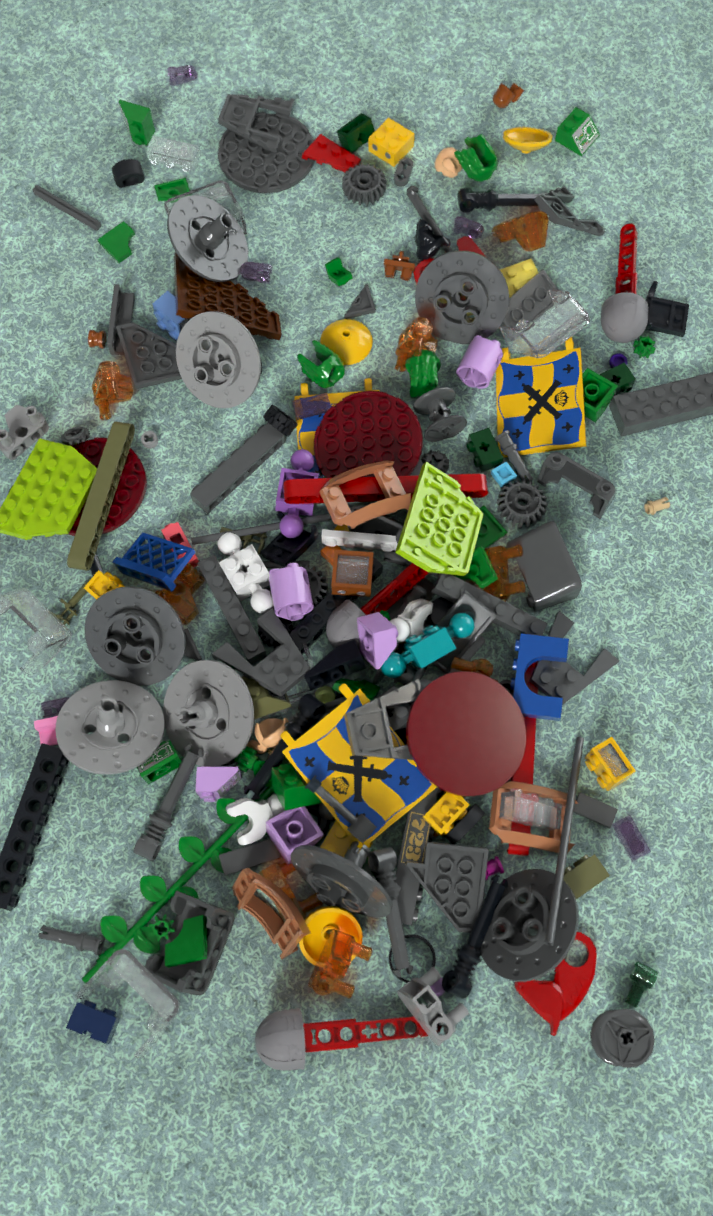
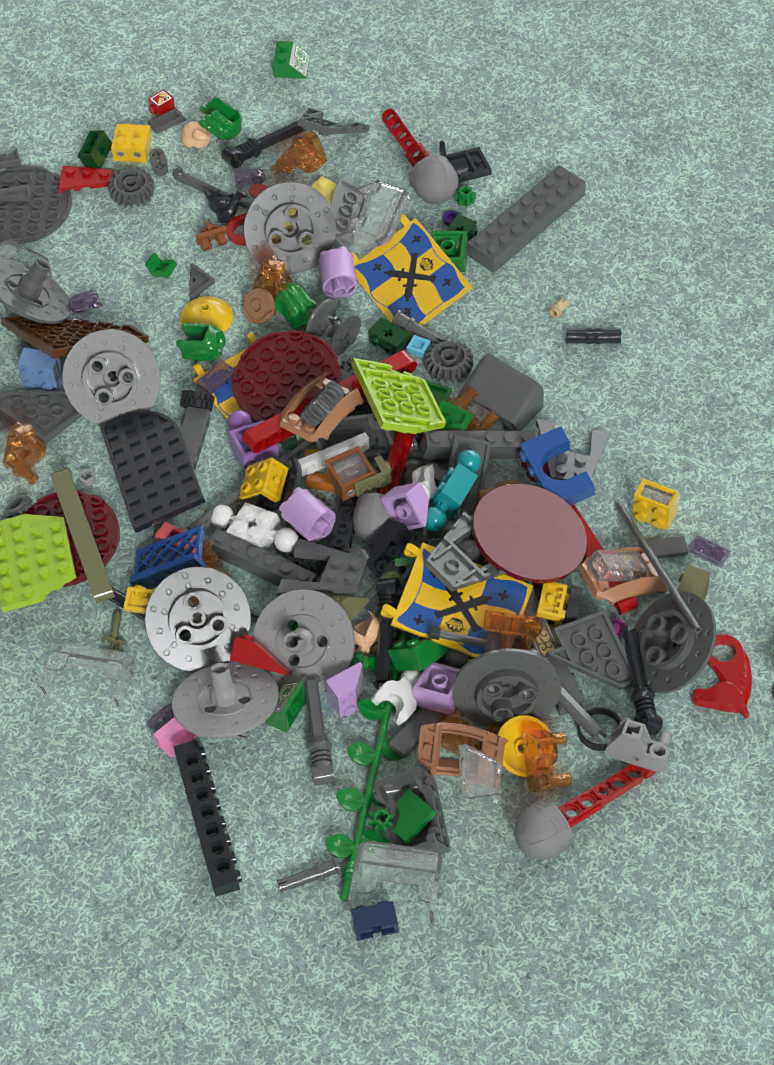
camera: 30 degrees left, 15 degrees down
(163, 700) = (255, 654): none -> red slope
(199, 464) = (151, 467): none -> black plate
(252, 965) = (479, 790): none -> clear windscreen
(280, 534) = (264, 478): none -> yellow bracket
(365, 494) = (322, 403): none -> dark grey gear
(372, 597) = (376, 481): none -> olive bracket
(383, 816) = (511, 625): none -> clear orange piece
(392, 357) = (258, 306): none -> medium nougat tile
(435, 135) = (166, 121): none -> dark grey tile
(440, 117) = (161, 103): none -> red brick
(505, 95) = (206, 60): dark orange piece -> none
(527, 138) = (251, 85): yellow dish -> none
(560, 466) = (485, 314): dark grey windscreen -> none
(669, 553) = (593, 335): none -> black axle

